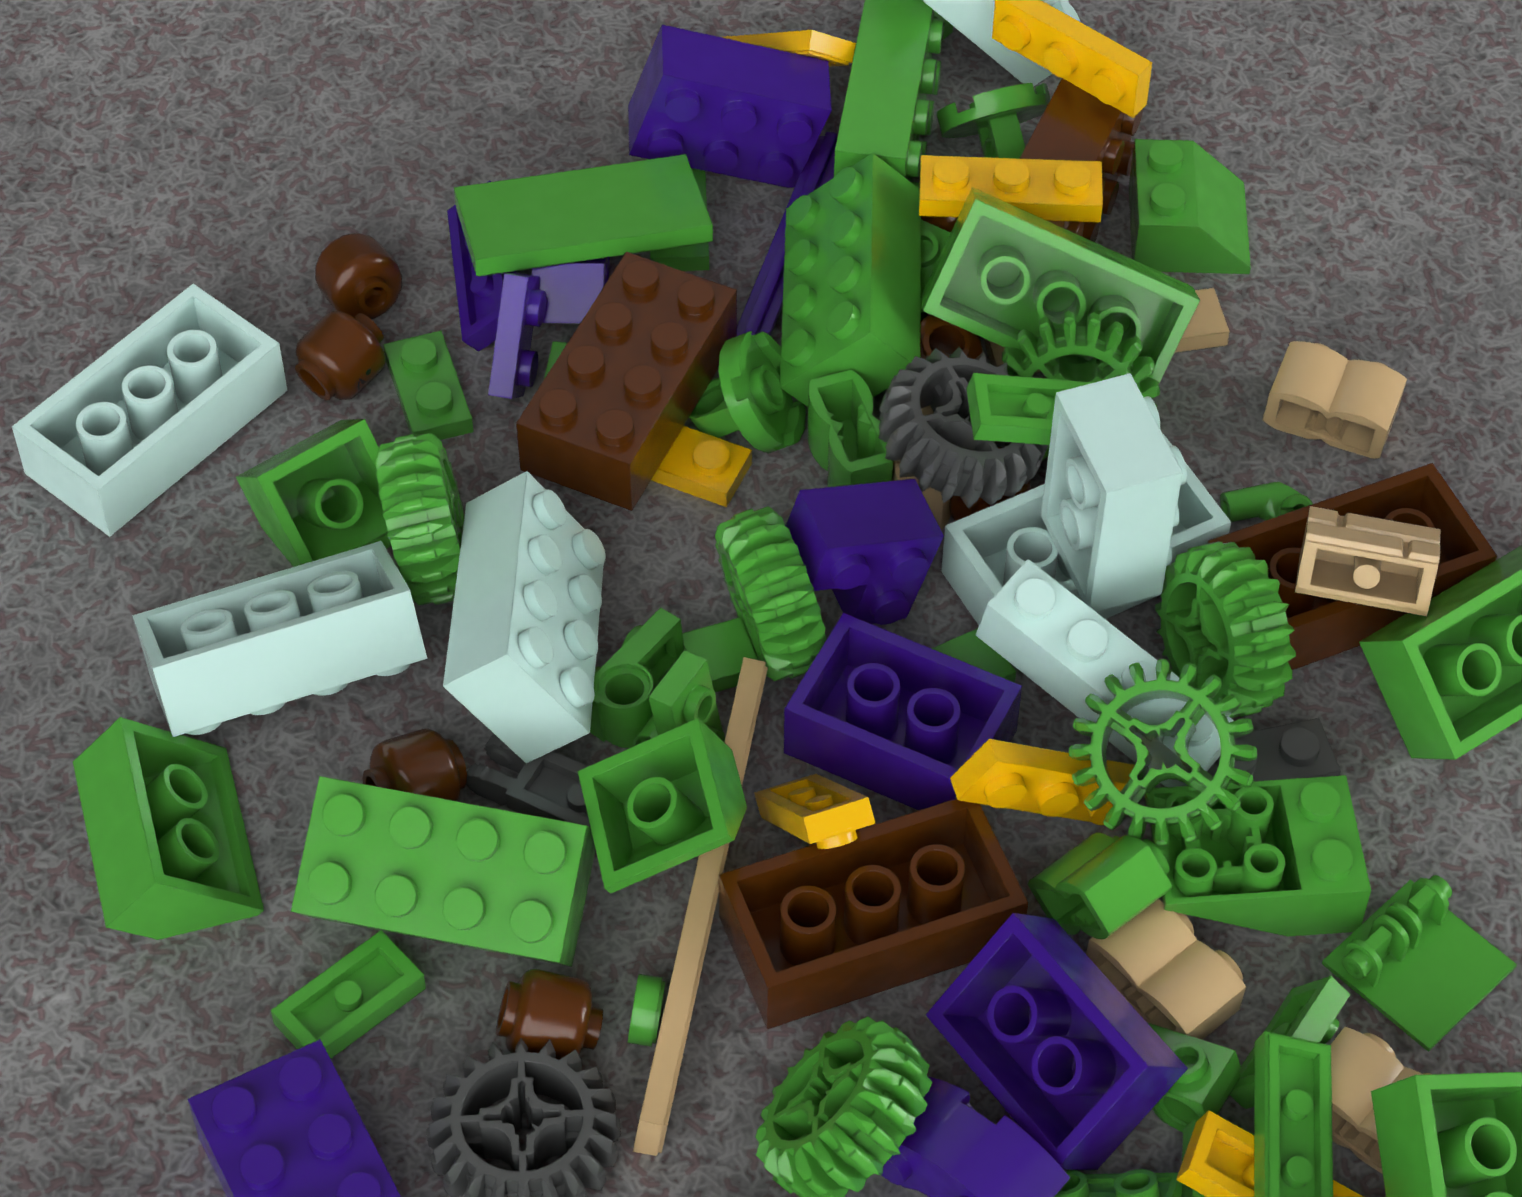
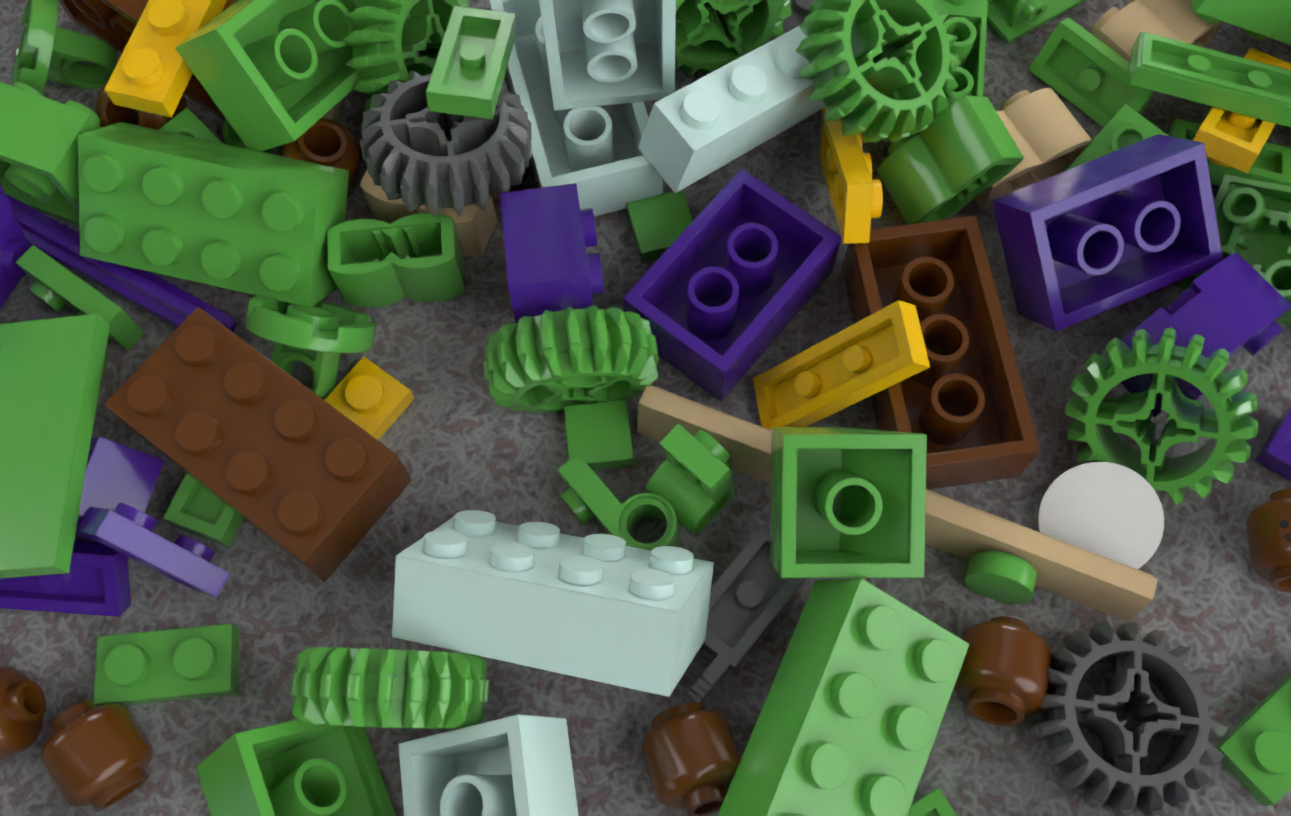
camera: 75 degrees left, 15 degrees up
(728, 1096) = (1104, 512): none -> white sticker
(753, 220) = (60, 288): none -> bright green plate

